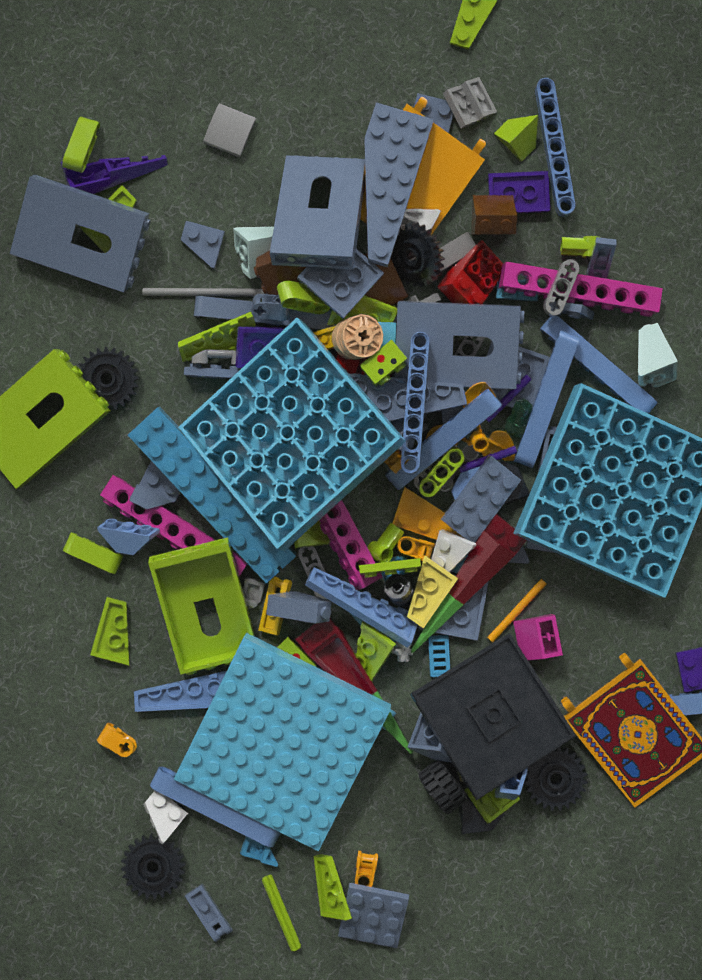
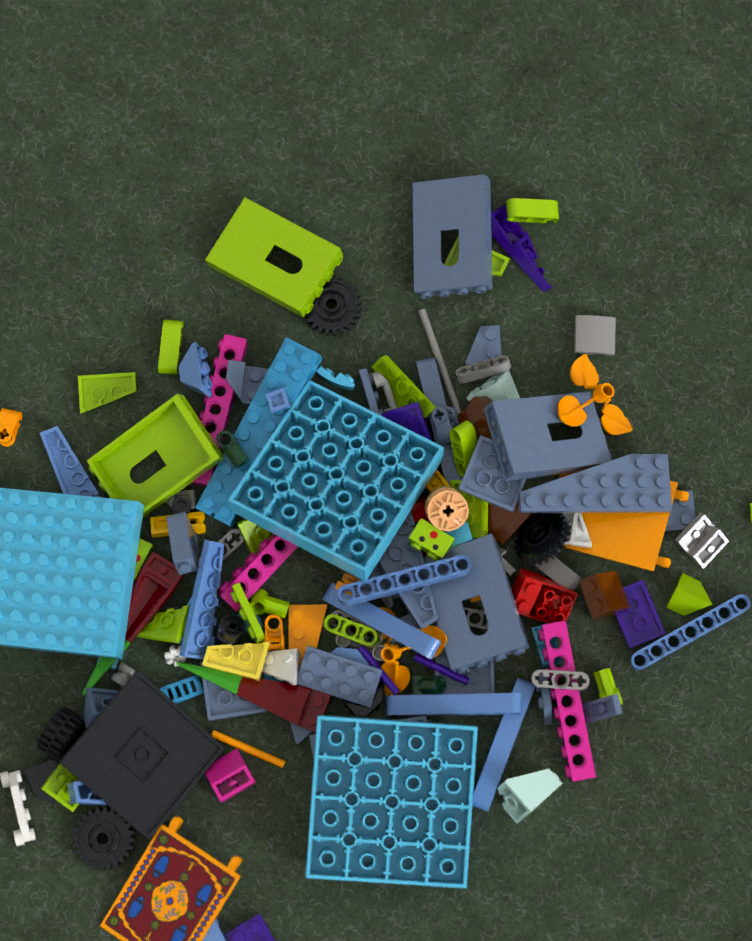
camera: 70 degrees right, 10 degrees down
(188, 396) = (341, 381): none -> medium azure slope
(190, 465) = (278, 400): none -> medium blue plate
(225, 526) = (233, 449): none -> clear green piece
(226, 240) = (483, 369): none -> light grey beam
(258, 596) = (181, 505): none -> black plate
(298, 180) = (570, 410): none -> light orange plant
(405, 707) = (123, 674): none -> light grey wheel
(523, 851) = (12, 780): none -> white plate

